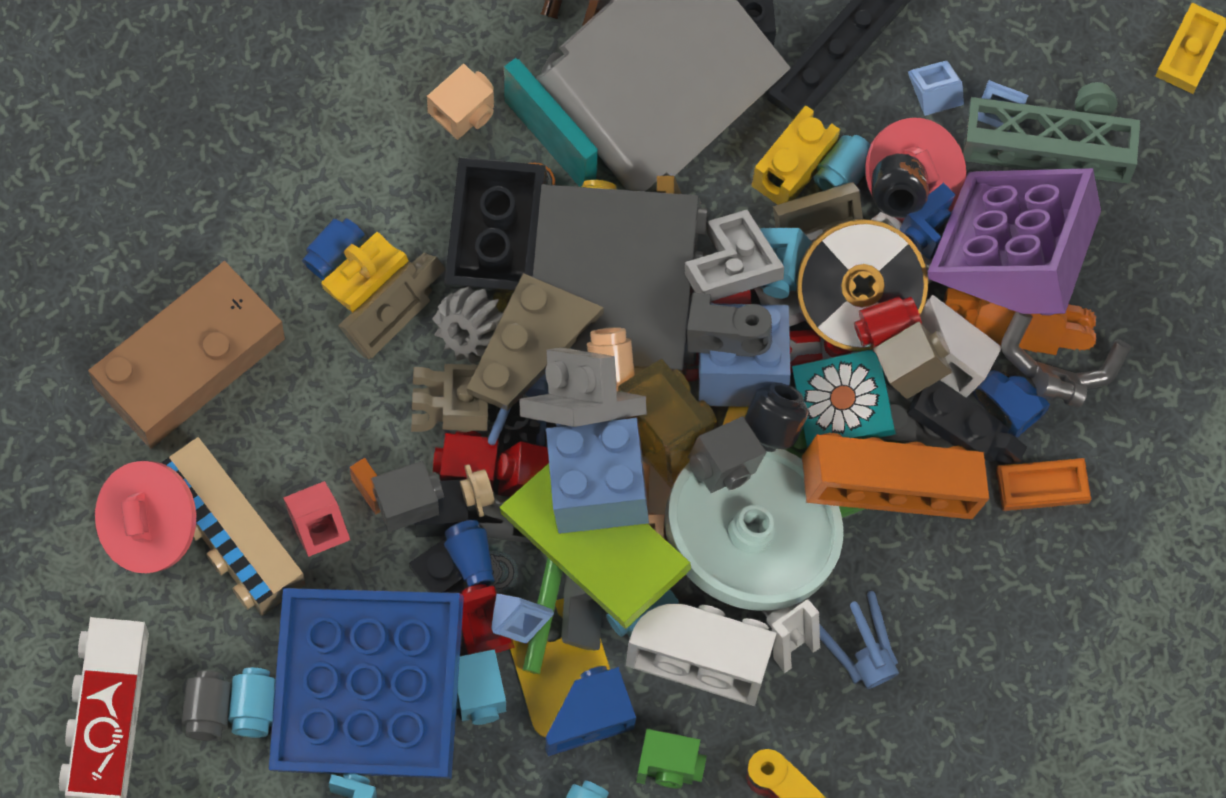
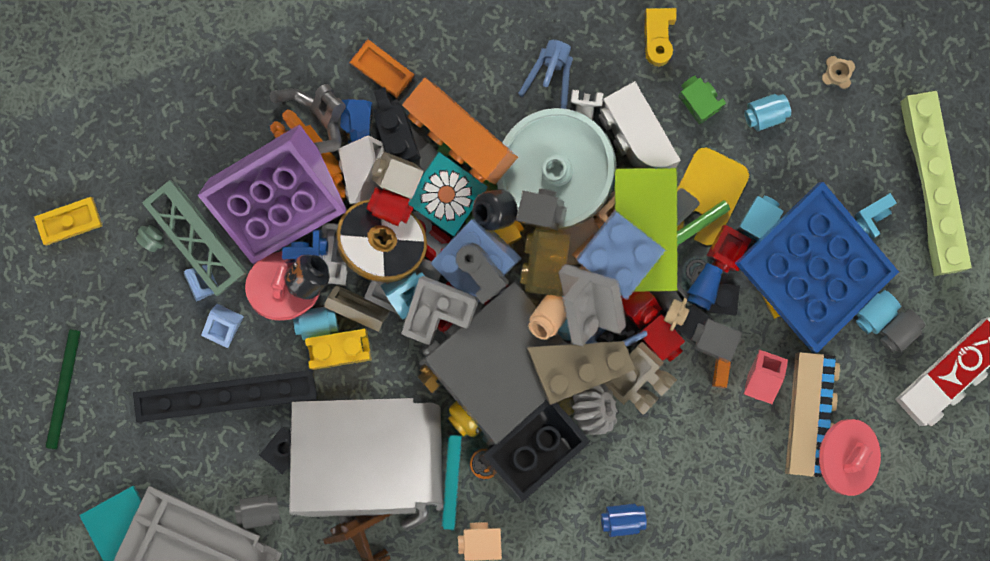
camera: 130 degrees left, 15 degrees up
(187, 354) = (753, 528): medium nougat brick -> none
(363, 271) = (622, 490): yellow hips -> none
(392, 305) = (620, 461): dark tan hinge -> none
(518, 618) = (712, 232): light blue slope -> none
(592, 711) = (718, 156): blue slope -> none

